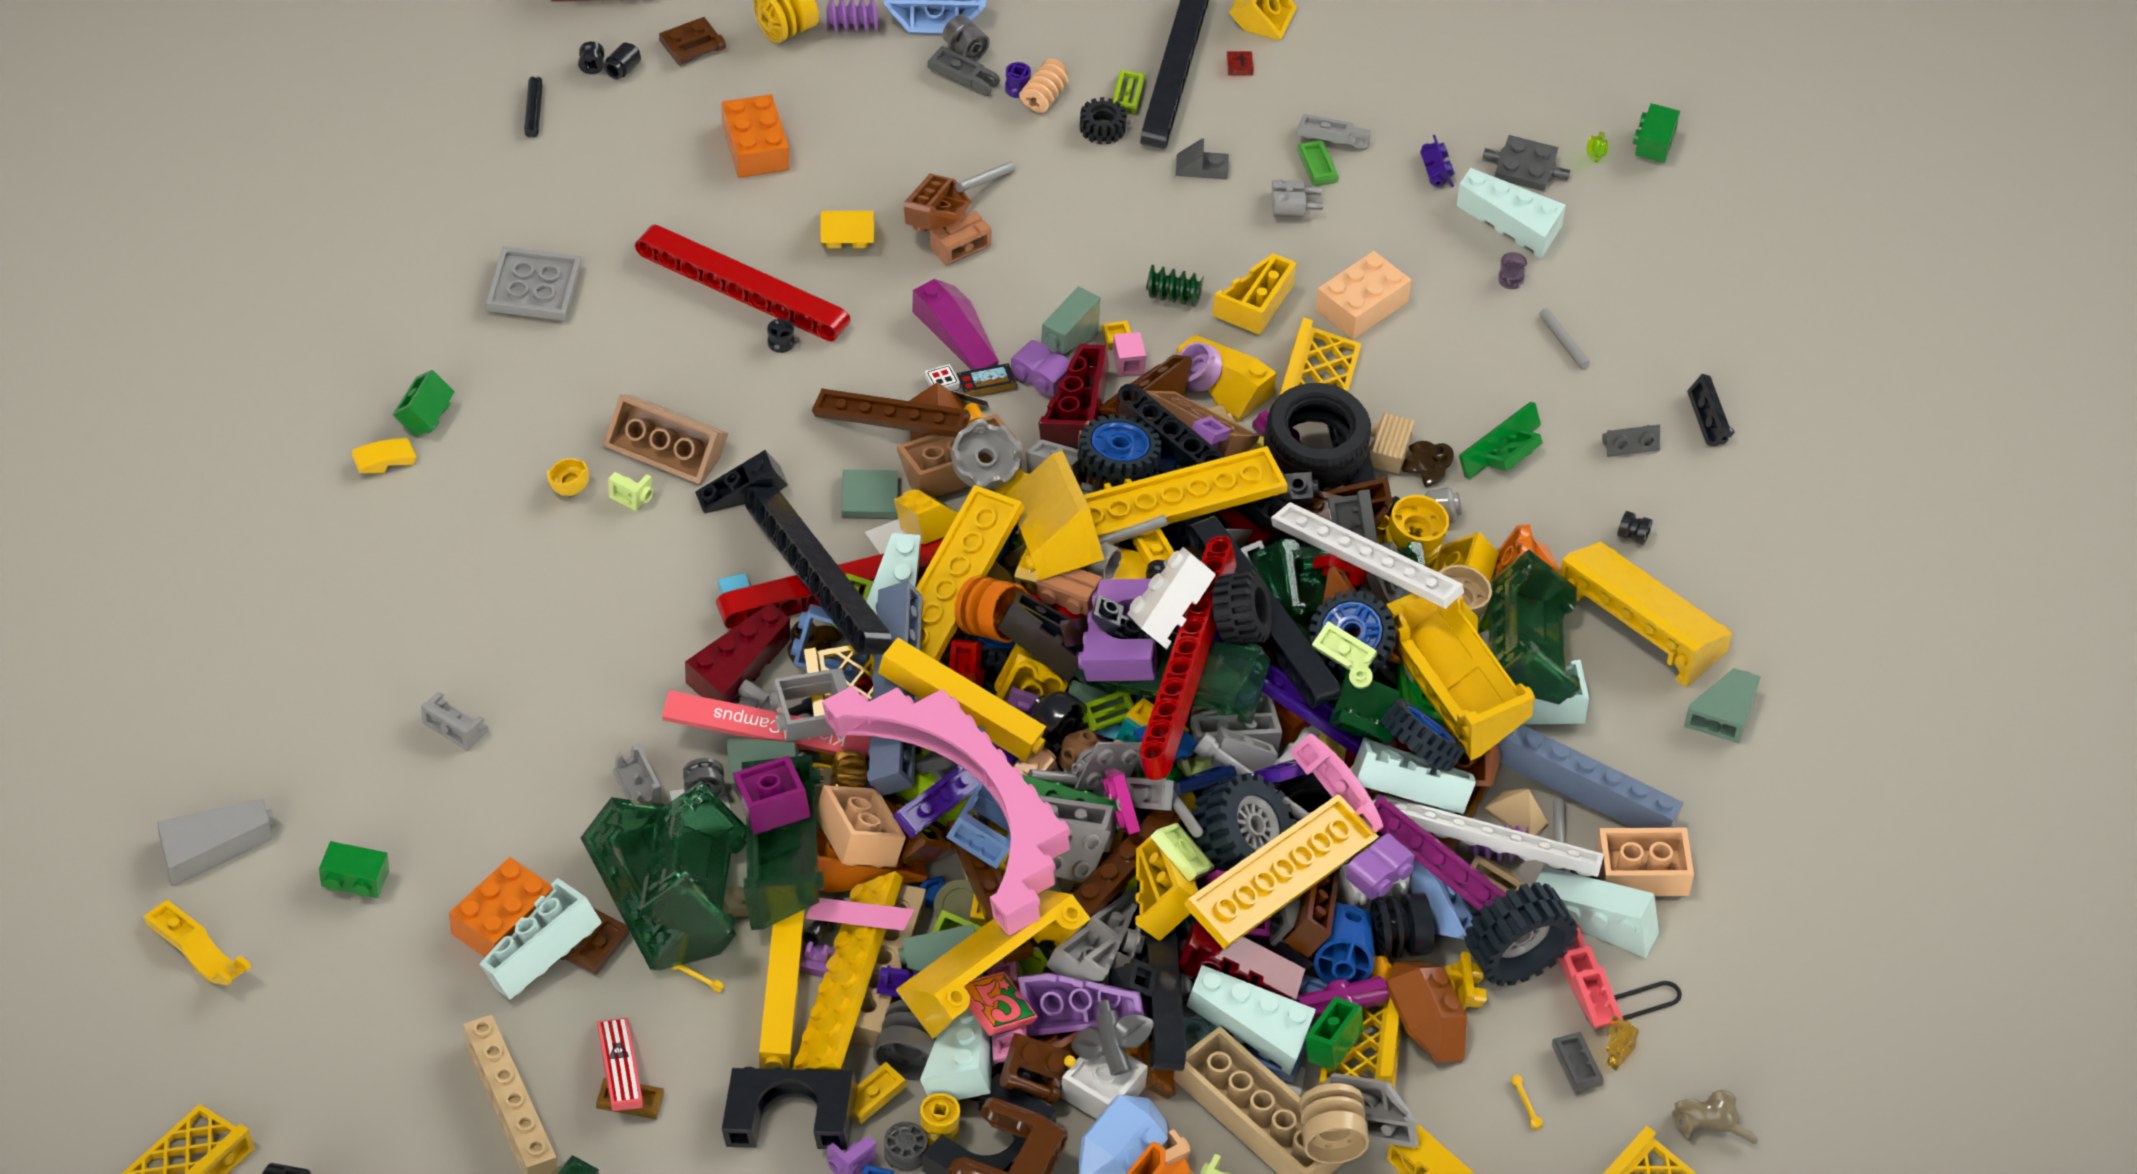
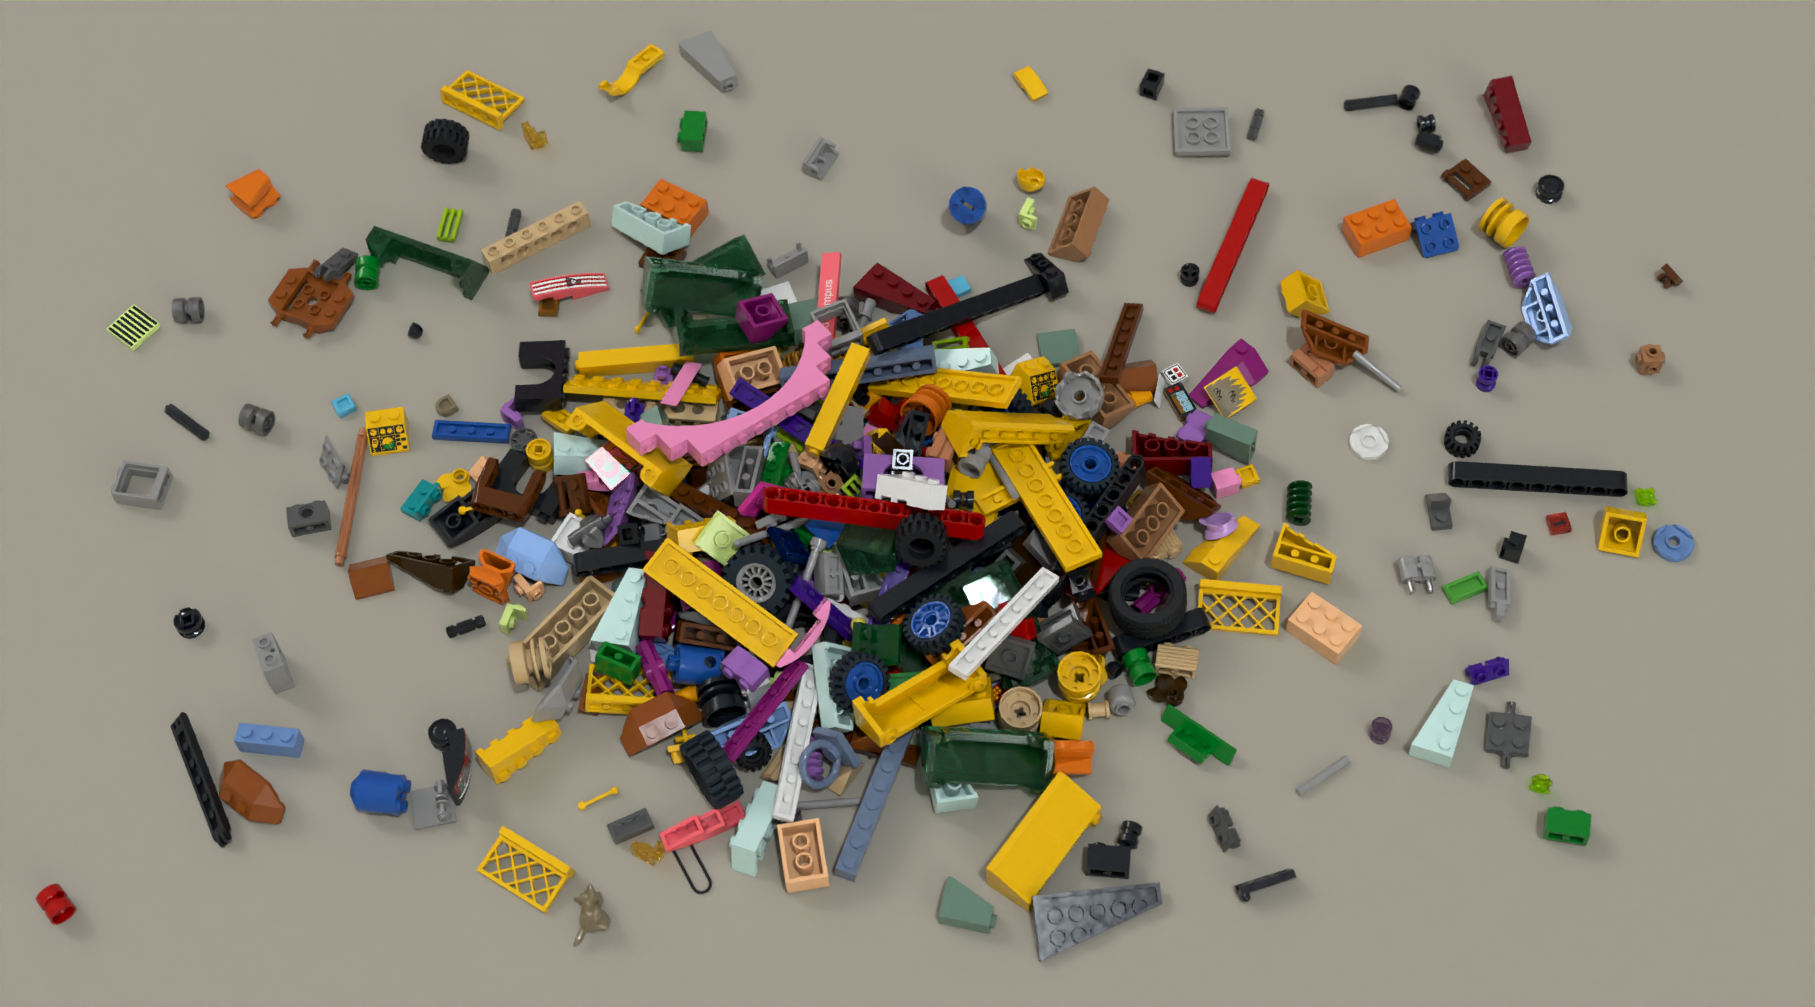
camera: 90 degrees right, 10 degrees up
(292, 1096) = (534, 139): none -> clear yellow bracket
(424, 403) = (1073, 92): green brick -> none
(433, 319) = (1151, 84): none -> black brick
(467, 1137) = (513, 222): none -> dark grey axle
(535, 227) = (1255, 124): none -> dark grey axle
(538, 64) = (1409, 96): none -> black wheel
(613, 540) = (972, 197): none -> blue cylinder
(710, 775) = (789, 290): dark grey wheel -> none
(774, 77) = (1436, 234): none -> blue bracket
(992, 322) = (1230, 392): none -> slope
(1044, 85) = (1482, 395): light nougat piece -> none
(1086, 210) = (1368, 442): none -> white tile
(1121, 366) = (1200, 472): none -> dark purple slope
(1132, 76) = (1502, 457): lime tile -> none
(1272, 104) = (1513, 547): none -> black brick
(1347, 652) = (909, 618): yellowish green hinge -> none
(1402, 478) = (1140, 668): none -> green wheel
(1455, 528) = (1098, 710): none -> tan bush
(1498, 798) = (835, 748): none -> sand blue tile
(1669, 554) = (1108, 860): none -> black brick
(1743, 590) = (1078, 915): none -> wing

